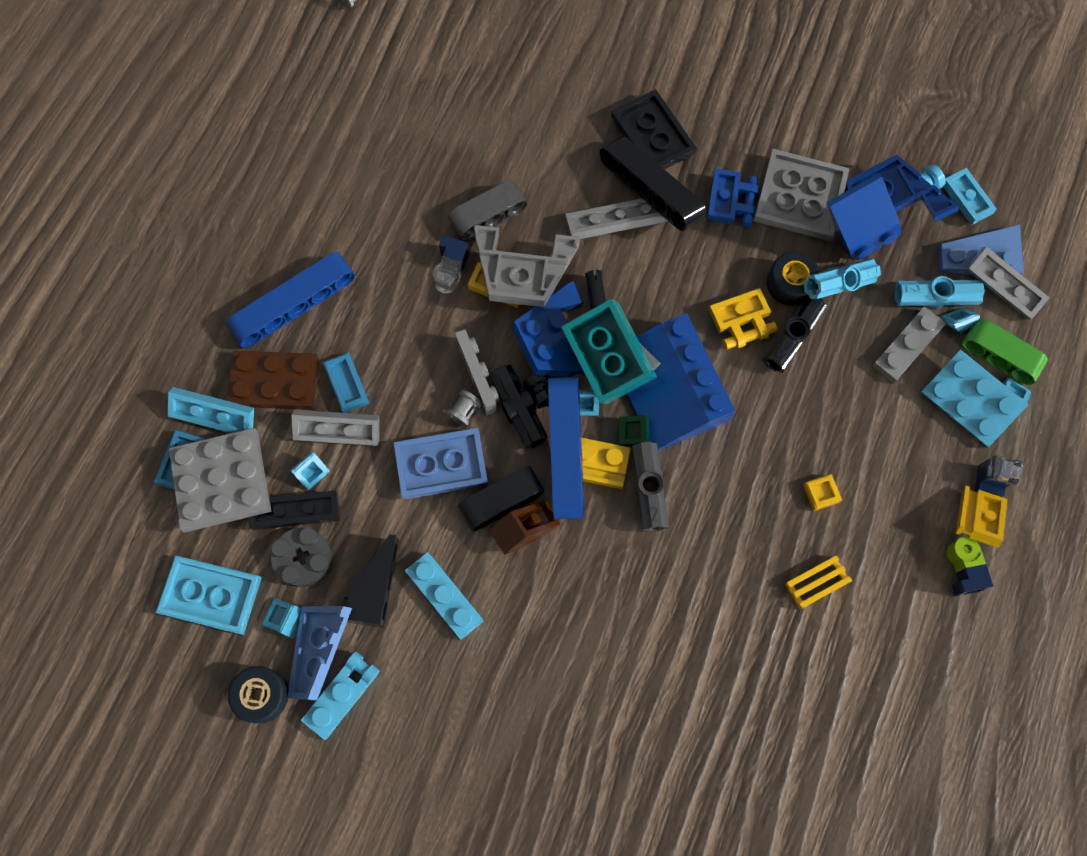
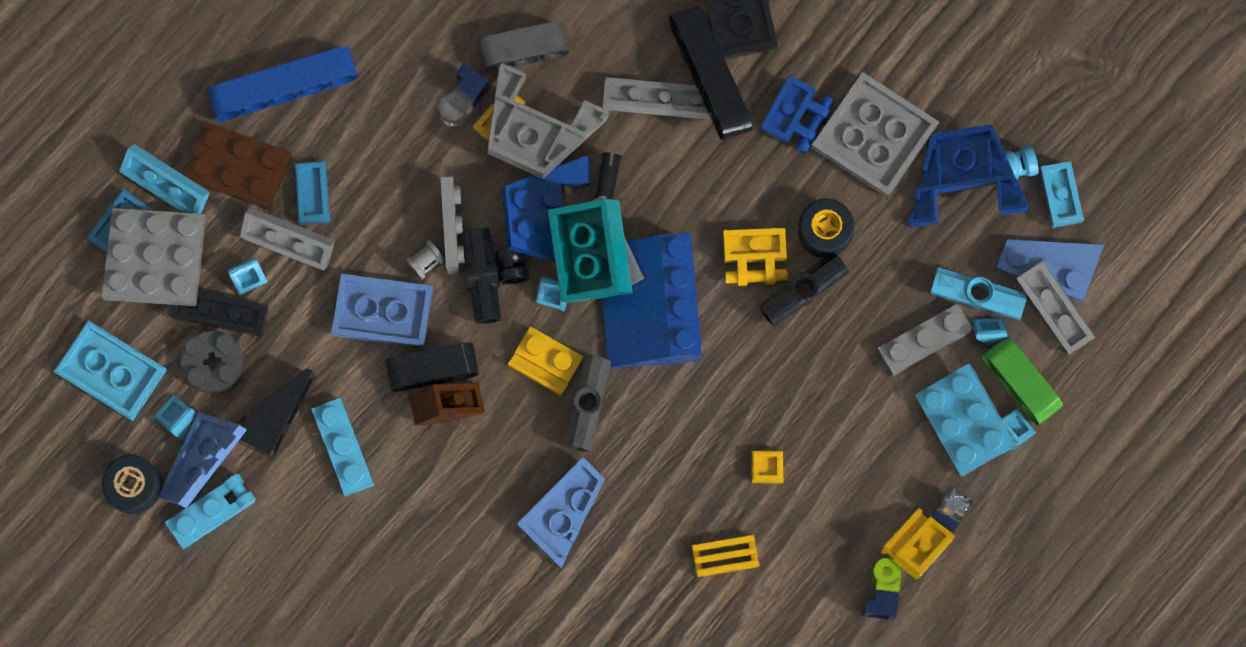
camera: 20 degrees right, 5 degrees up
(566, 448) = (513, 336): blue beam -> none
(633, 430) = (593, 339): dark green plate -> none
(660, 591) = (561, 512): none -> medium blue wing
(842, 279) = (860, 245): medium azure piece -> none
(864, 217) = (917, 190): blue slope -> none

